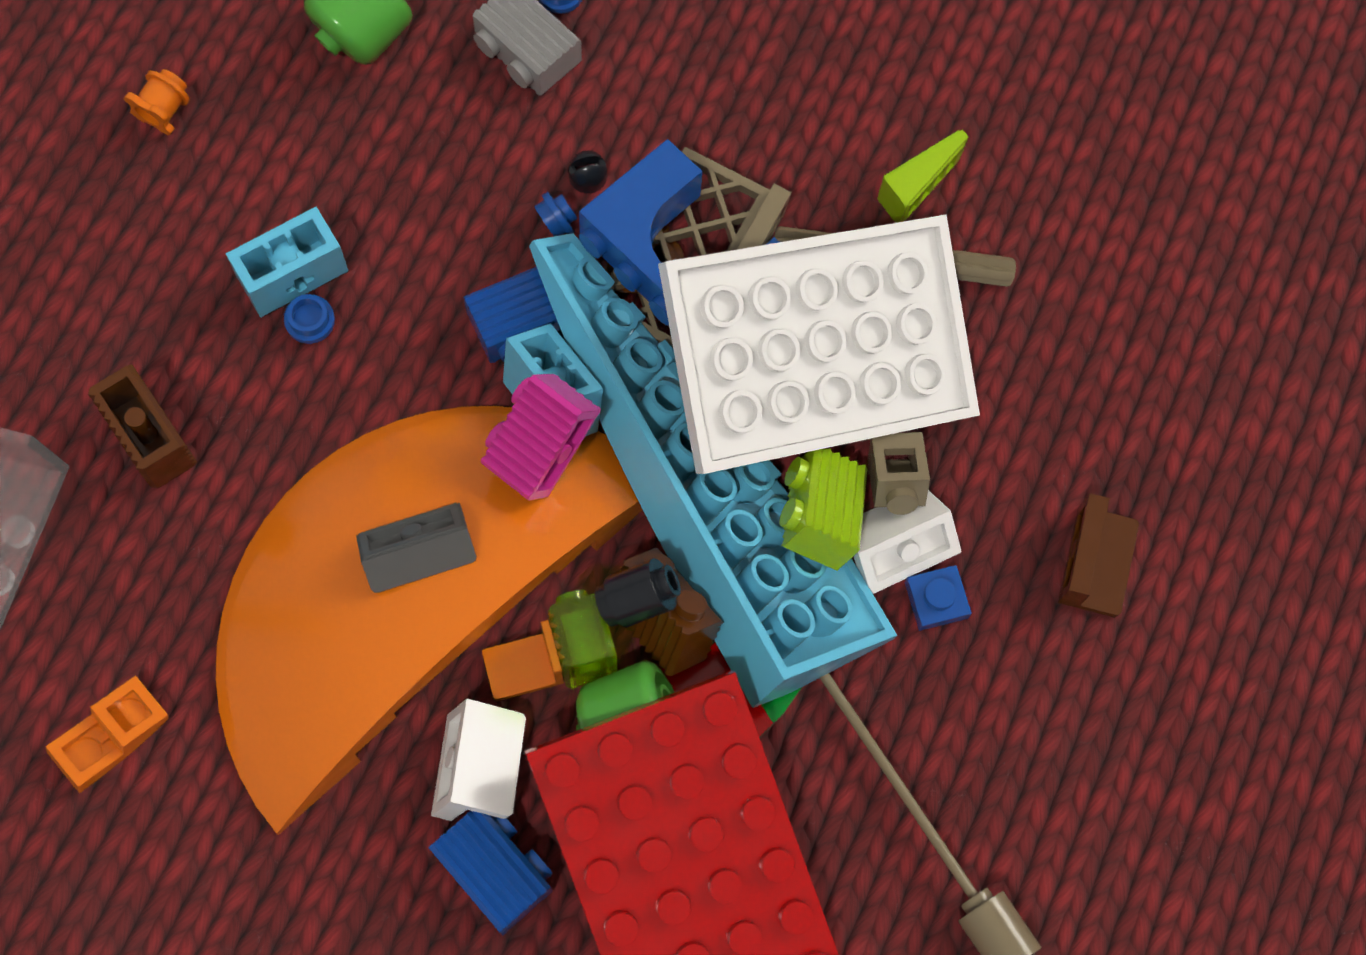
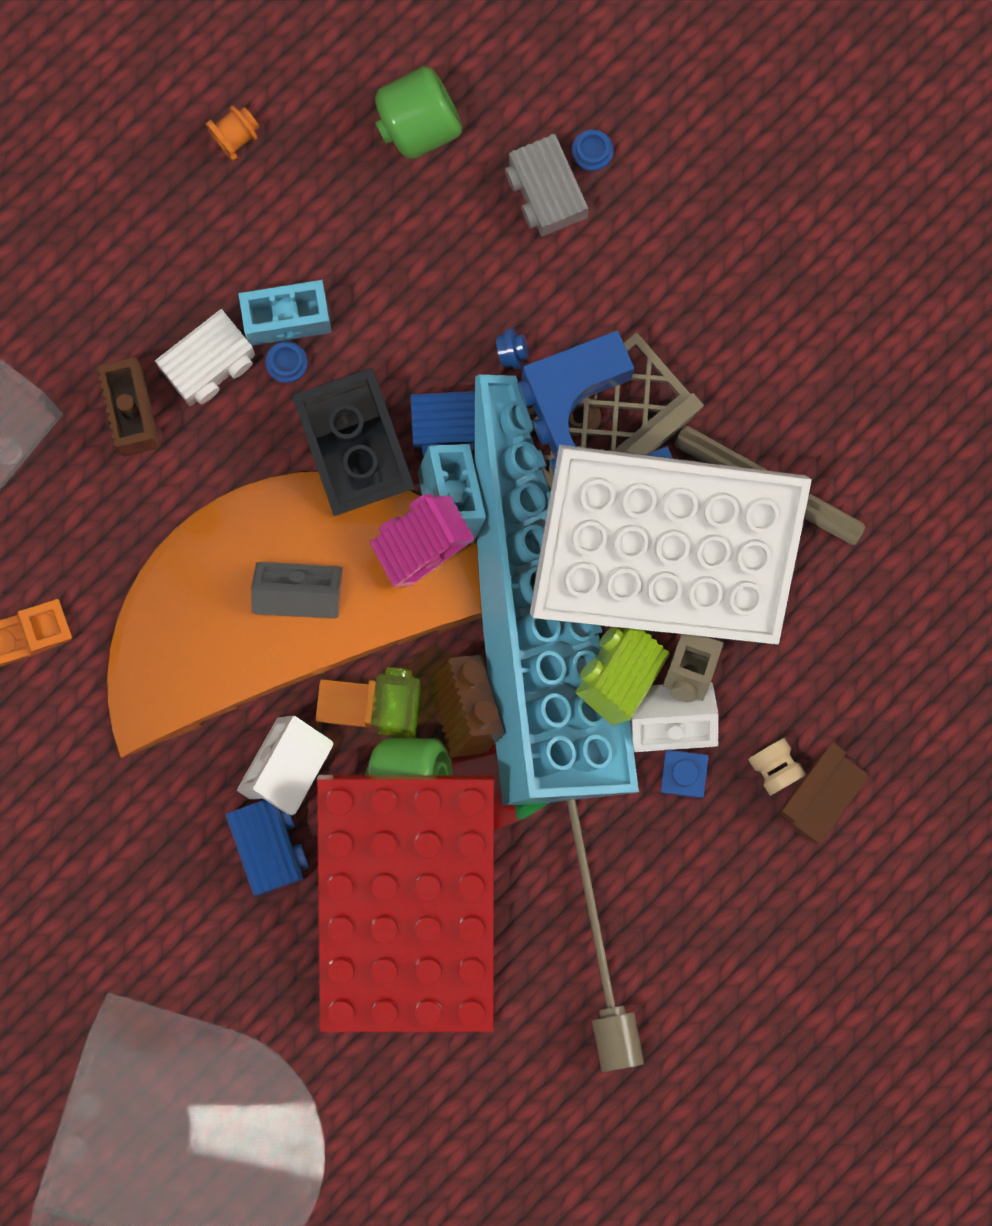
camera: 25 degrees right, 10 degrees up
(215, 345) = (206, 359): none -> white brick
(416, 368) = (353, 442): none -> black slope
(588, 178) = (550, 326): black hinge -> none
(637, 593) = (446, 691): black brick -> none
(914, 180) = (812, 429): lime slope -> none
(1028, 540) = (772, 758): none -> tan wheel

